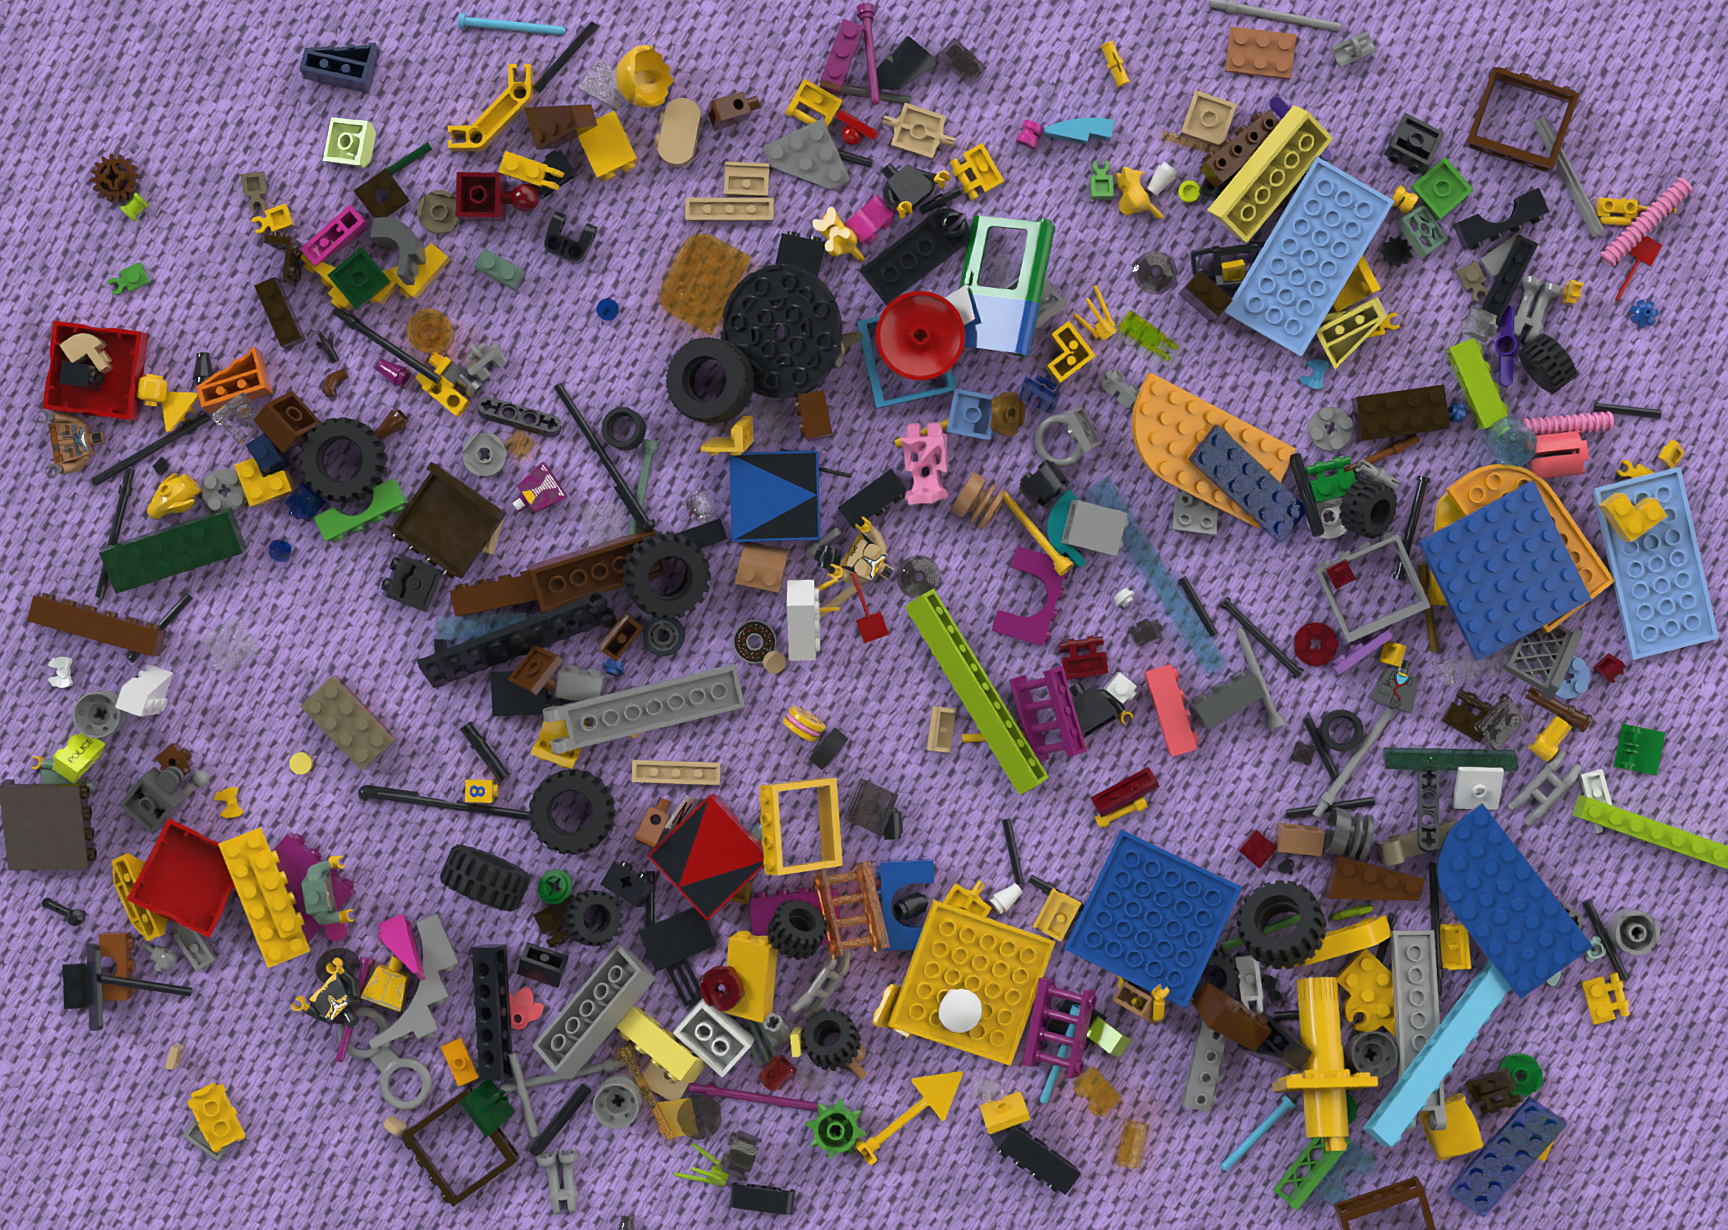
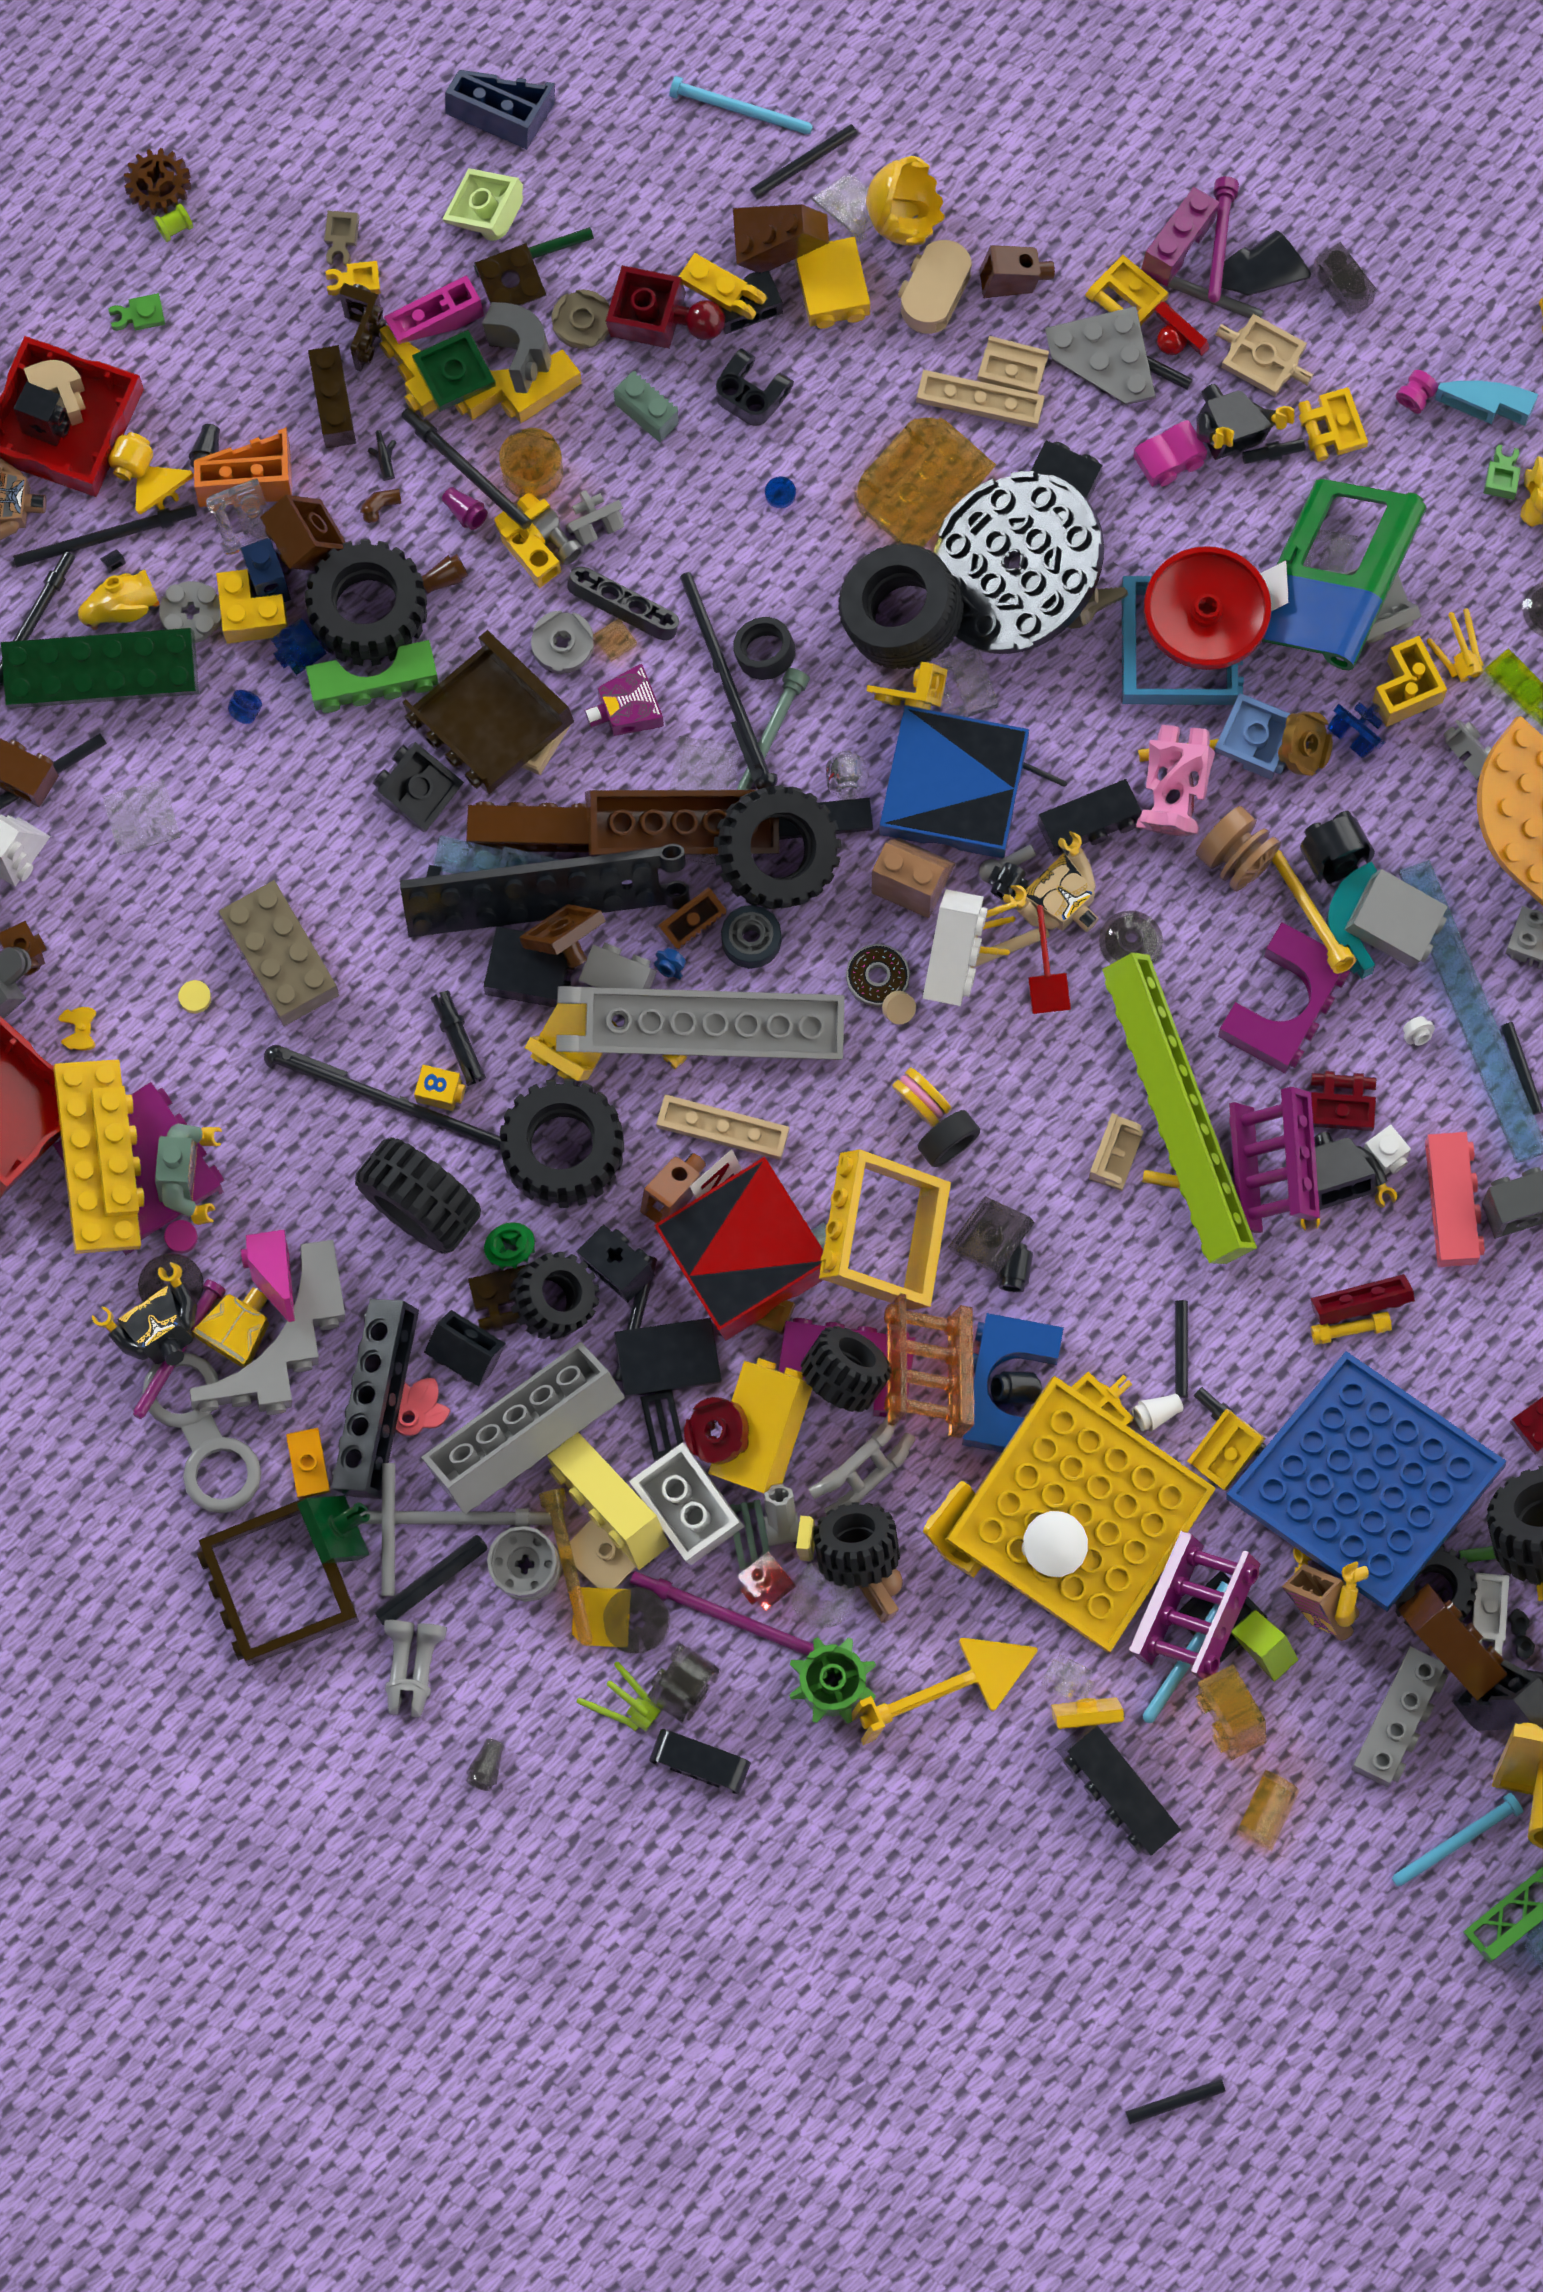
camera: 20 degrees right, 15 degrees down
(199, 779) = (46, 986): light grey bar -> none
(394, 1125) = (189, 1530): tan tile -> none
(498, 115) = (690, 214): yellow piece -> none
(815, 416) = (1033, 685): reddish brown brick -> none
(840, 238) = (1124, 464): yellow animal -> none
(916, 254) = (1227, 509): black plate -> none
(1079, 429) = (1402, 785): light grey tile -> none
(1145, 631) = (1438, 1083): clear smoke brick -> none

